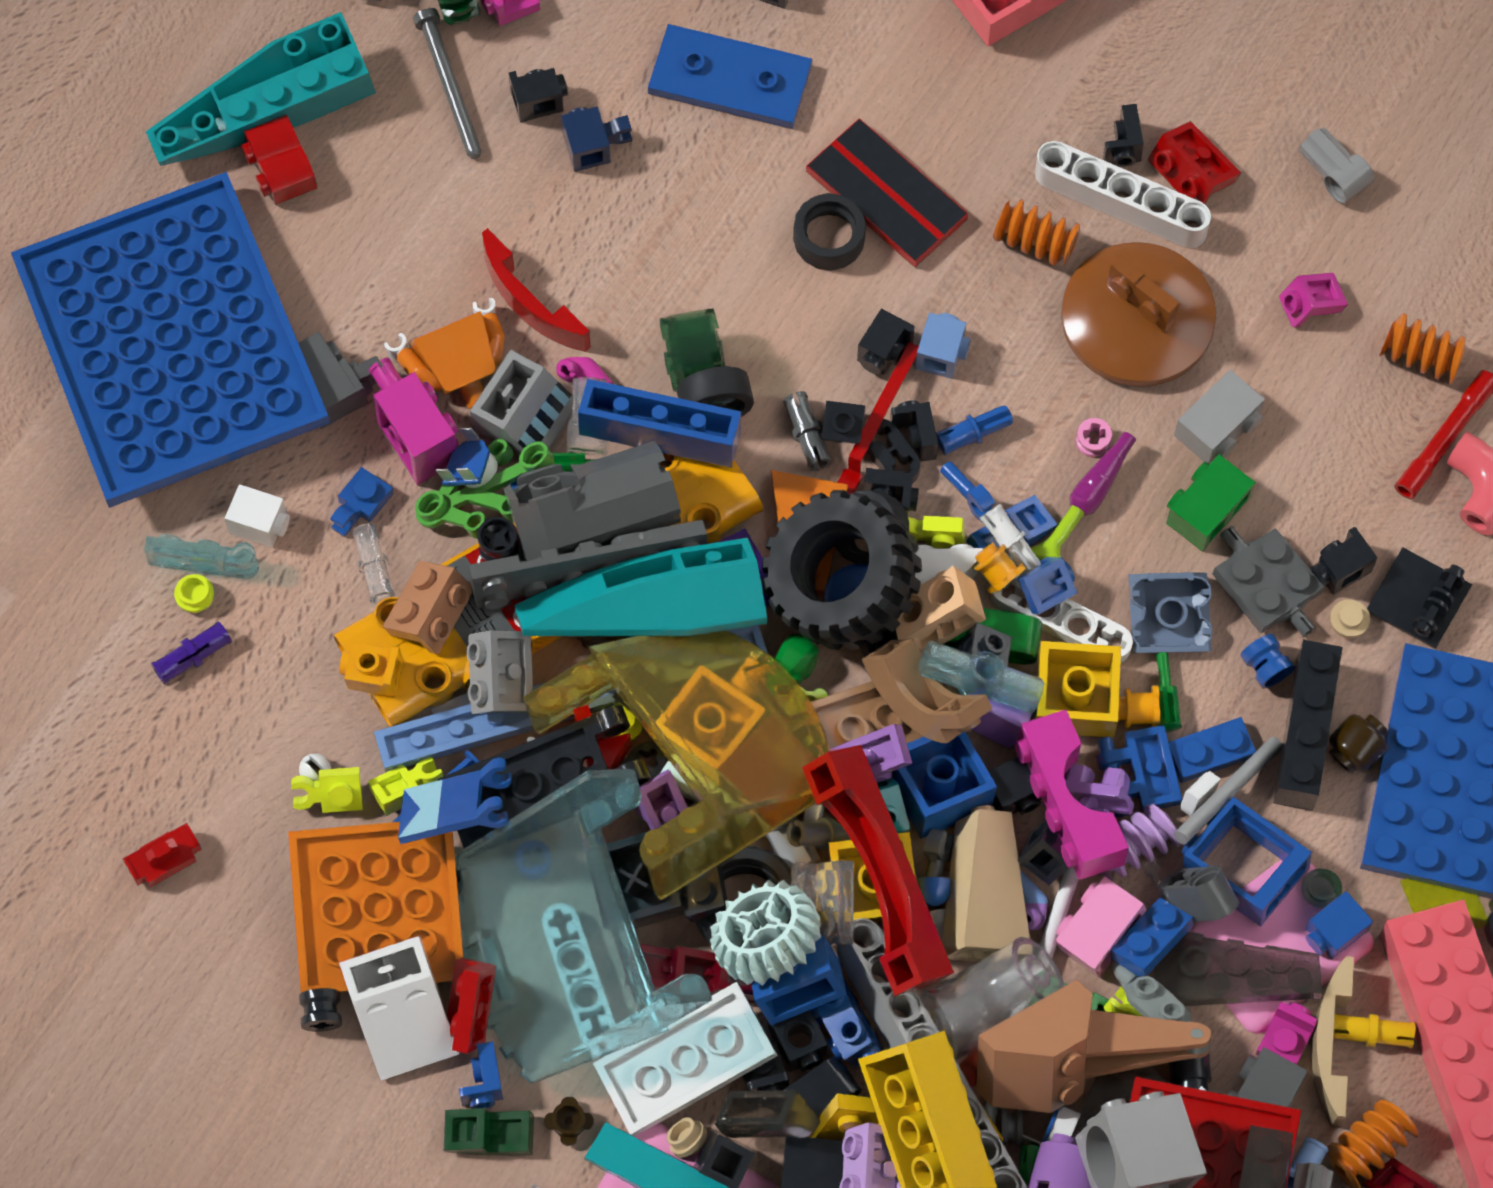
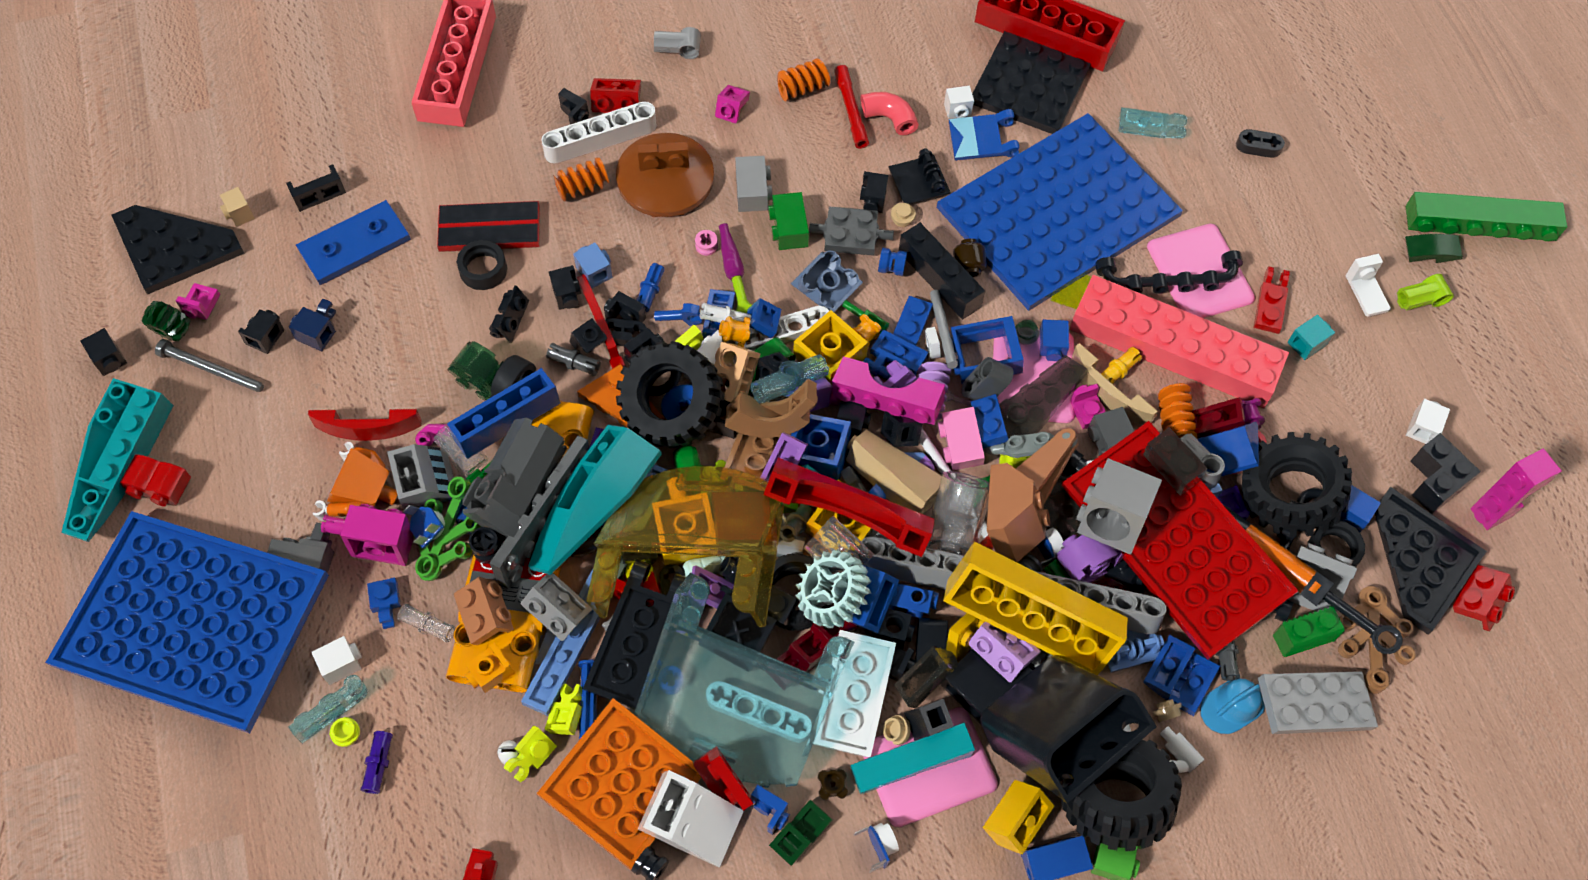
camera: 50 degrees left, 5 degrees down
(453, 804) = (609, 689): blue flag -> none
(808, 313) = (512, 309): none -> black hinge

